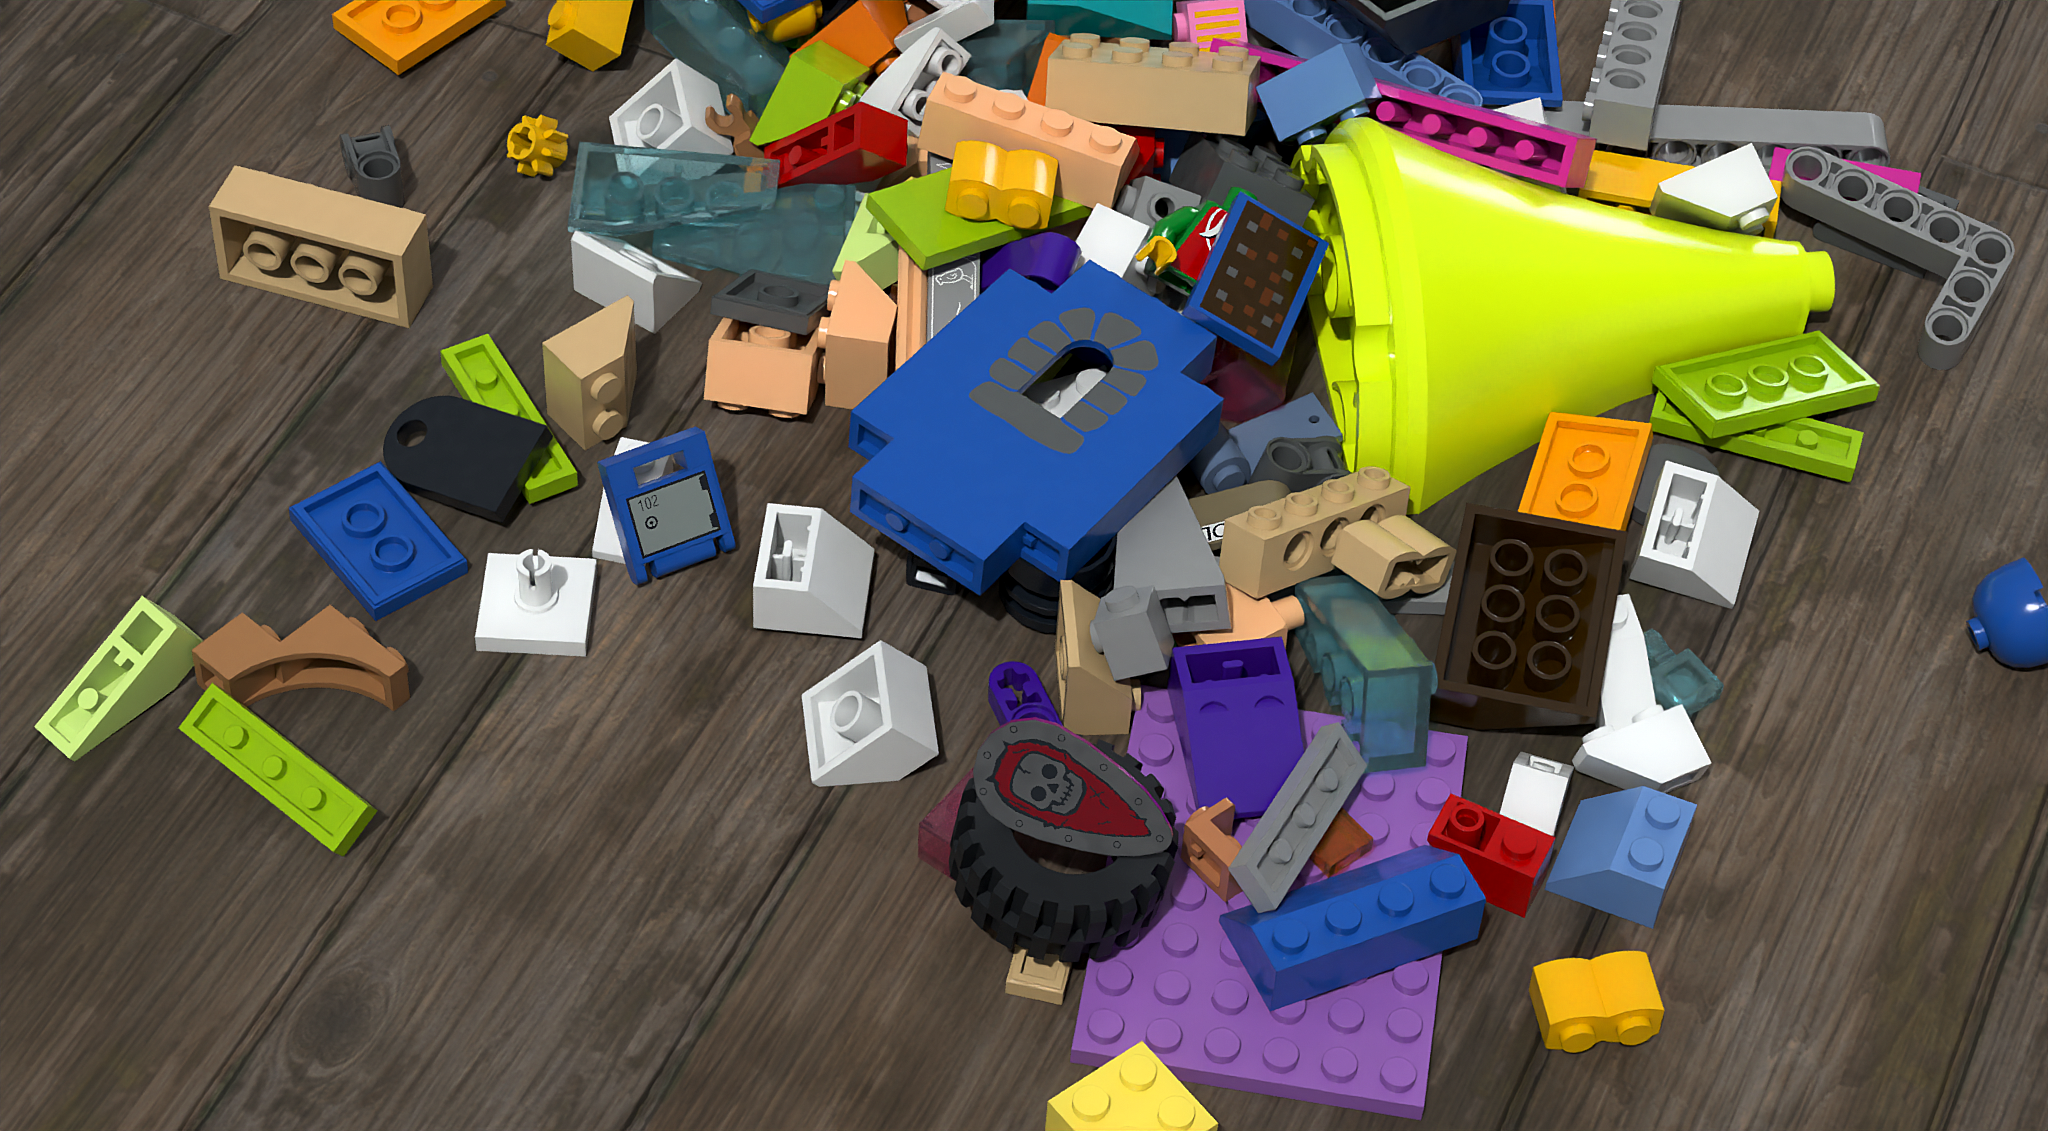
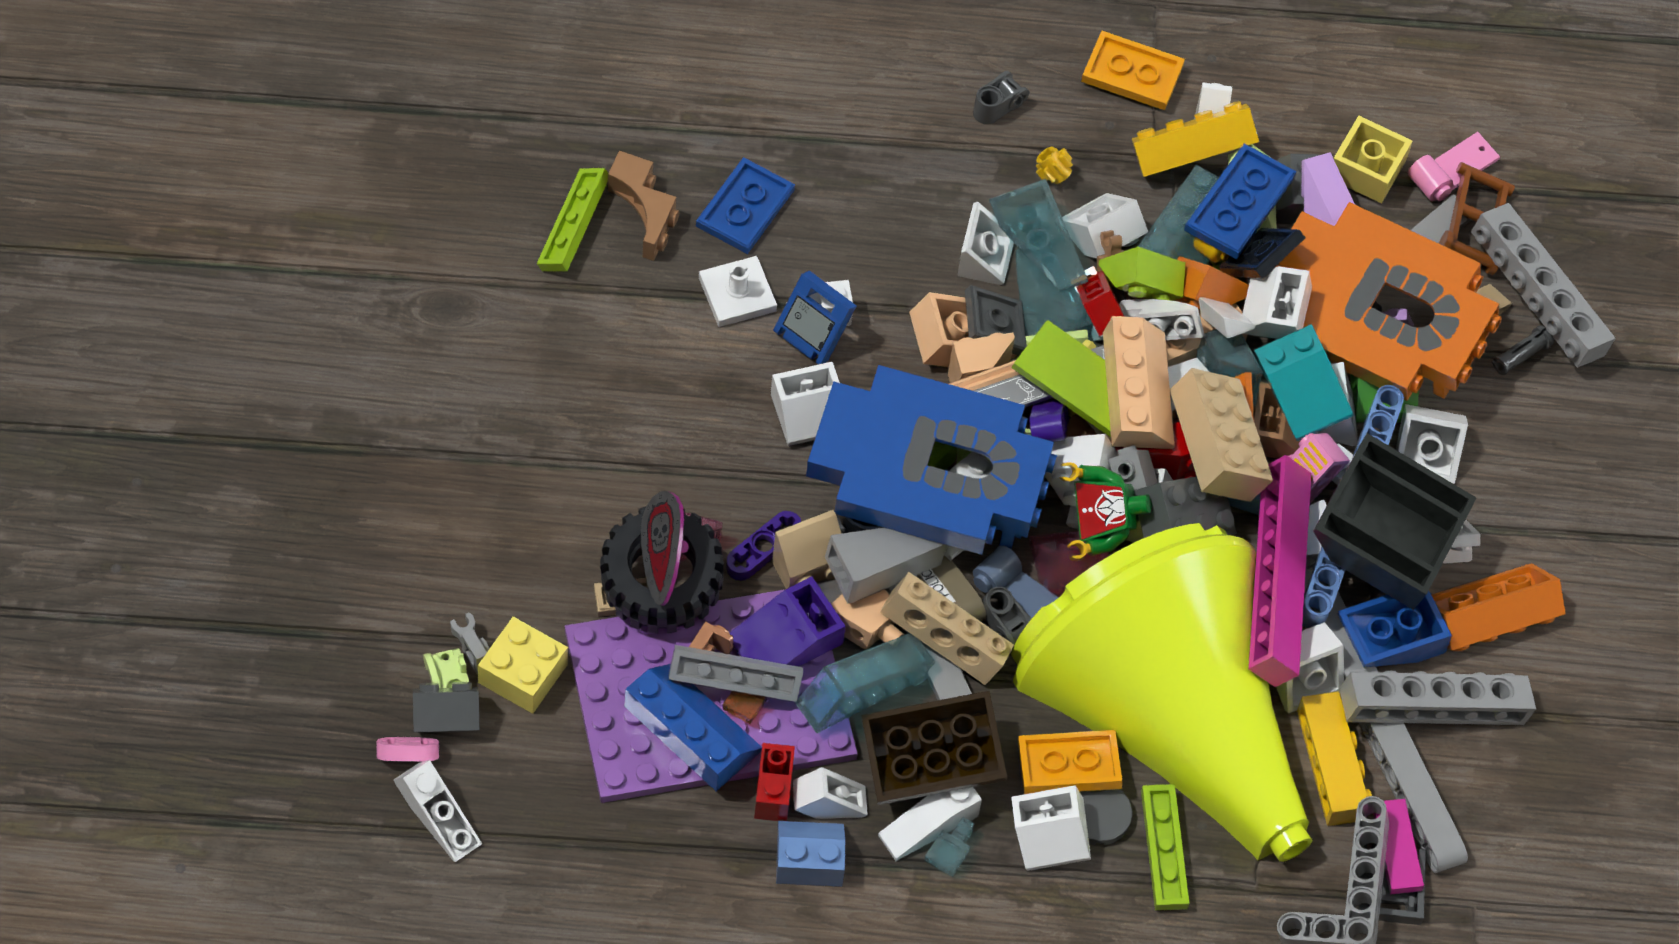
camera: 65 degrees right, 10 degrees up
(121, 680) = (597, 132): yellowish green slope -> none
(321, 246) = (917, 95): tan brick -> none
(469, 454) = (811, 221): black tile -> none
(488, 380) = (853, 229): lime plate -> none
(592, 374) = (893, 254): tan slope -> none
(870, 720) = (729, 467): white slope -> none
(1001, 185) = (1084, 380): yellow brick -> none
(1132, 632) = (813, 554): light grey brick -> none
(1255, 278) = (1083, 527): tile -> none
(1319, 93) = (1258, 520): medium blue brick -> none
(1393, 556) = (947, 670): tan brick -> none
(1596, 1001) = (704, 861): yellow brick -> none
(1652, 752) = (879, 844): white slope -> none
(1720, 194) = (1311, 768): white slope -> none
(1765, 384) = (1200, 840): lime tile -> none

